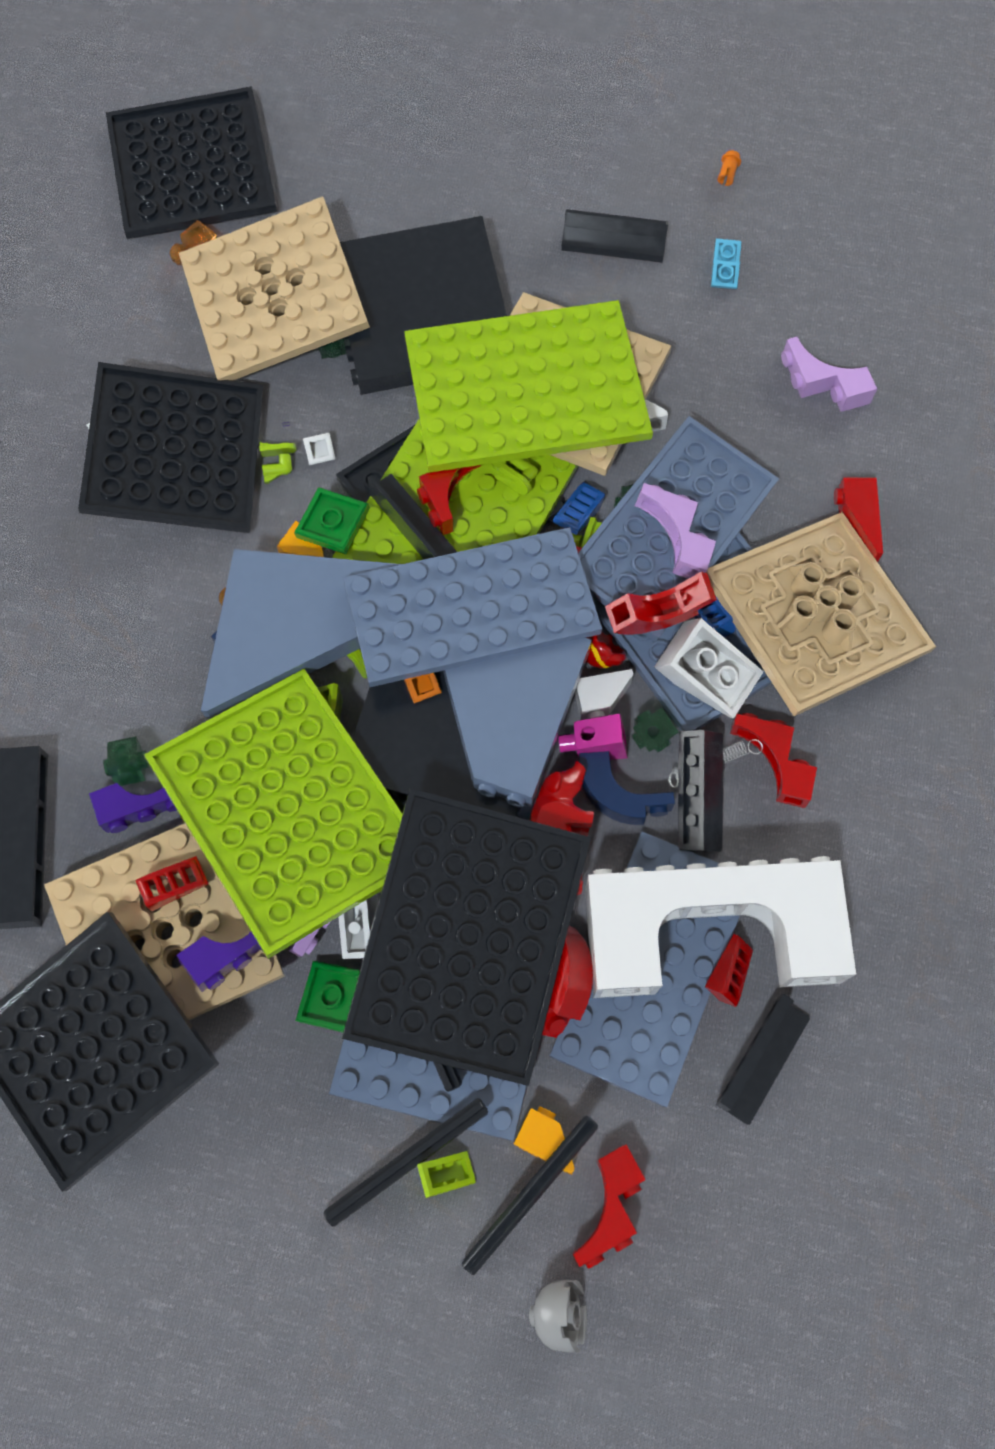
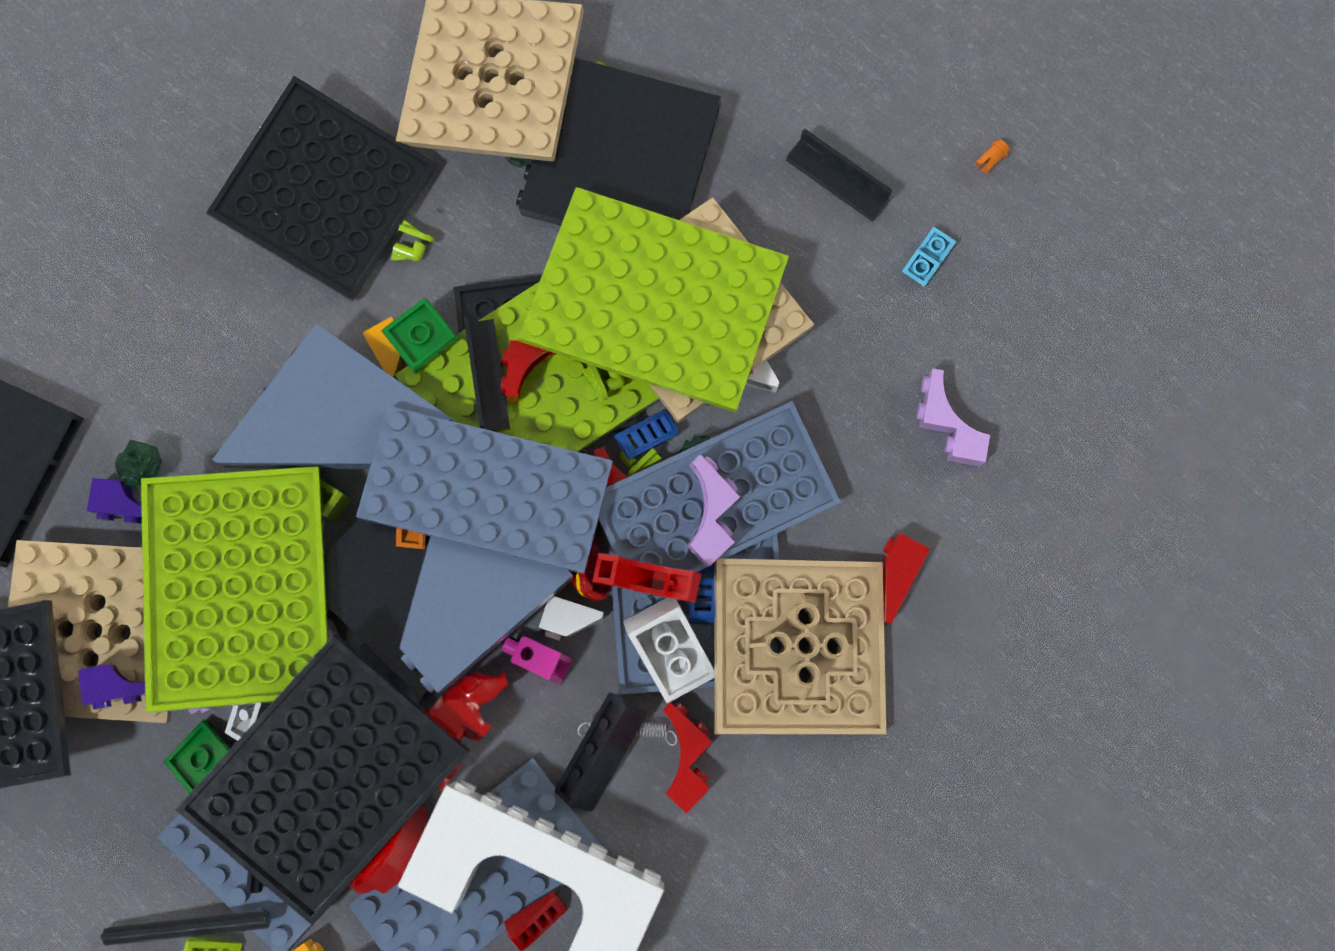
camera: 30 degrees right, 10 degrees up
(156, 878) = (88, 598): red slope -> none
(319, 448) = (455, 250): white slope -> none
(614, 800) = (522, 717): dark blue arch -> none
(665, 730) = (592, 676): clear green brick -> none

